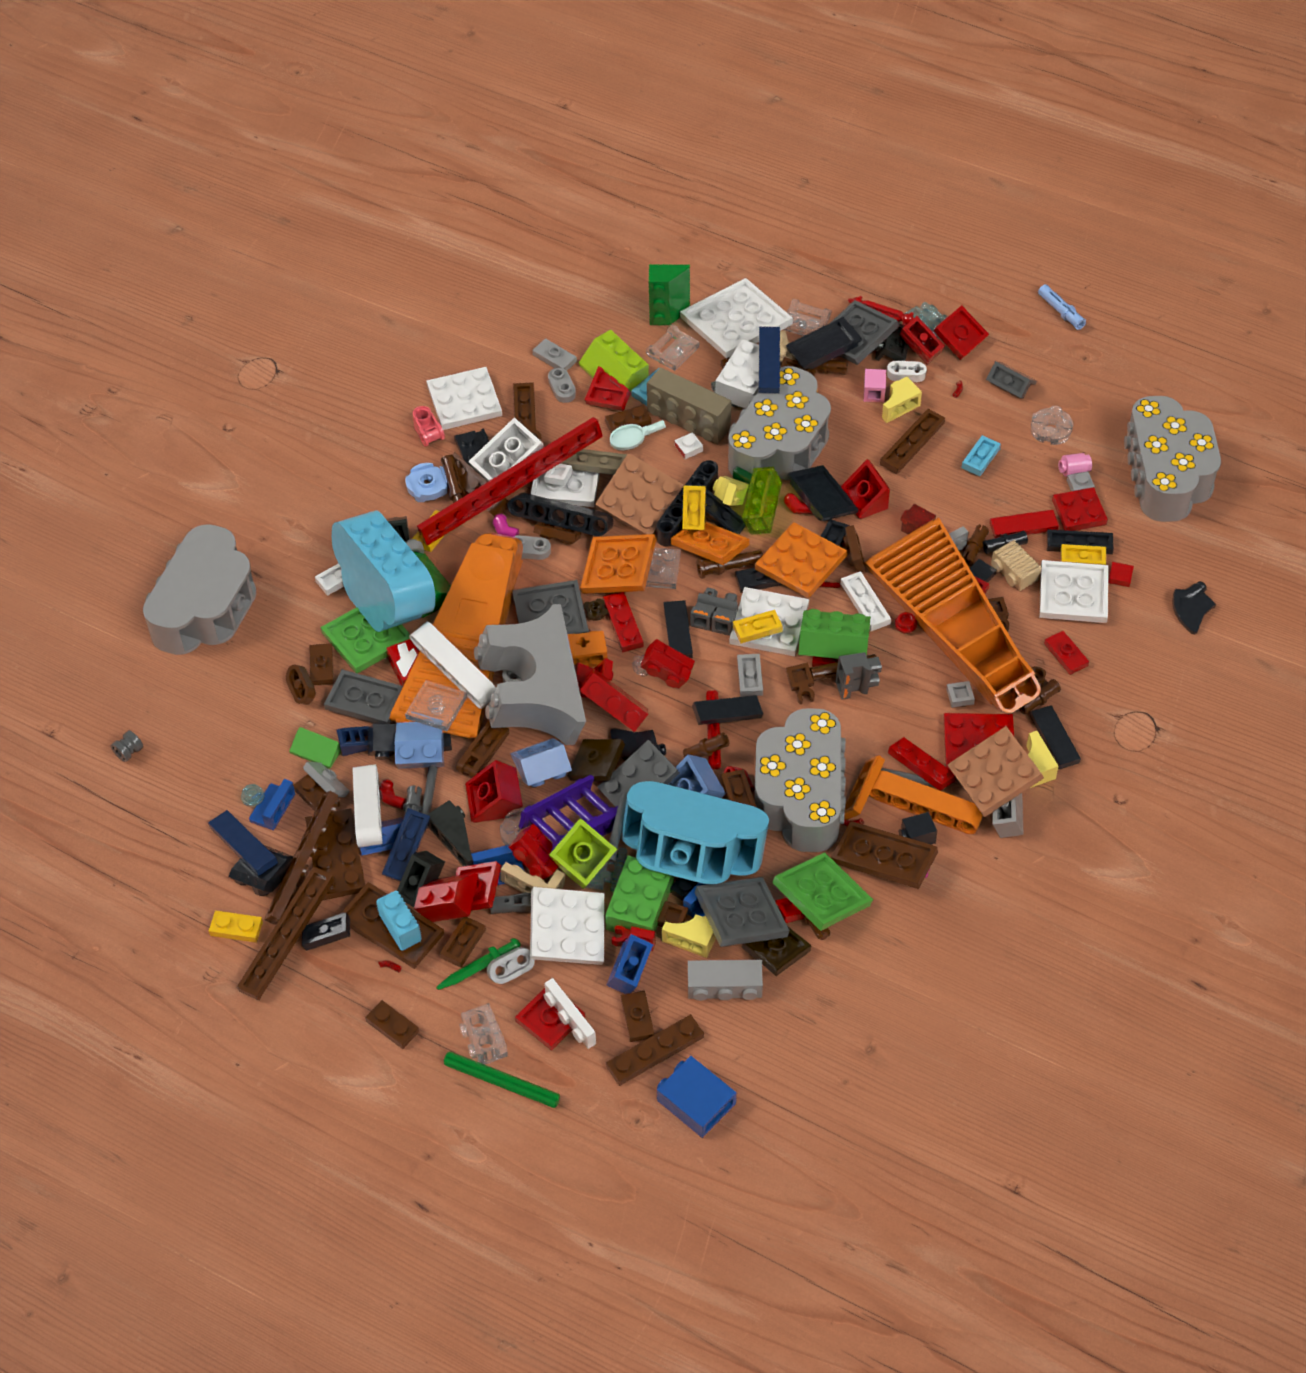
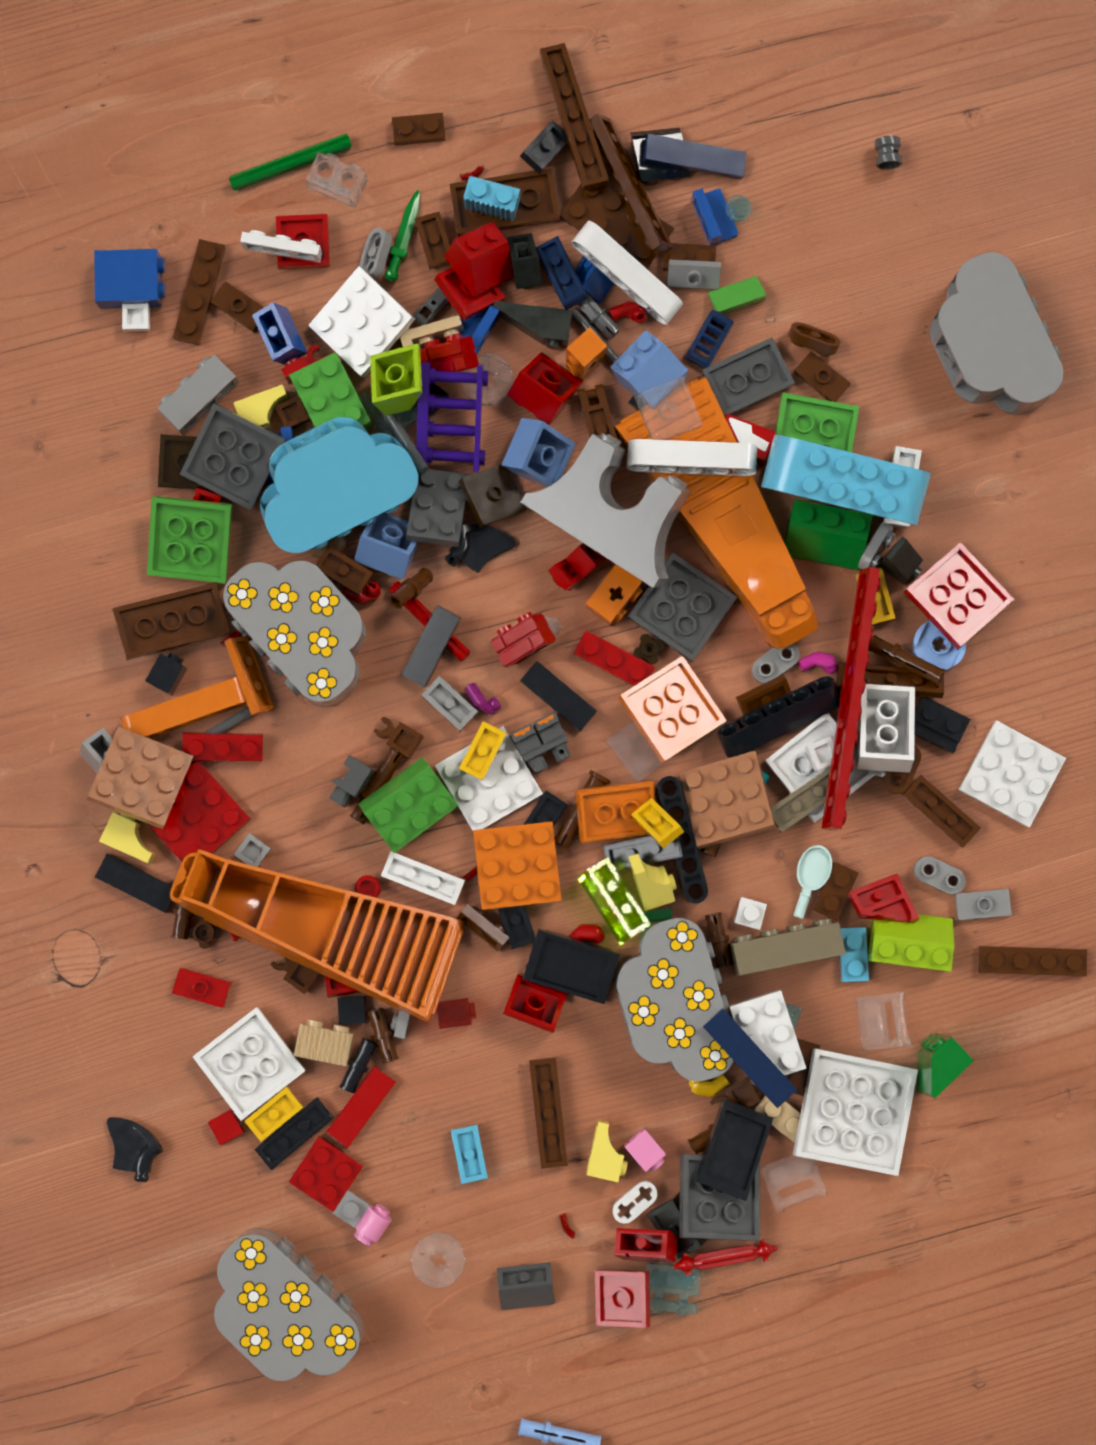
camera: 130 degrees right, 30 degrees up
(235, 926) = (625, 93): yellow plate -> none
(381, 740) = (685, 345): black brick -> none
(388, 488) = (958, 595): none -> plate
(427, 425) = (1003, 703): coral piece -> none
(447, 782) = (585, 354): none -> orange brick
(559, 314) = (1032, 961): none -> reddish brown plate
(614, 700) = (526, 553): red brick -> none
(719, 447) = (719, 939): none -> reddish brown pin
(719, 1065) = (136, 317): none -> white plate
(729, 662) = (480, 701): none -> magenta arm

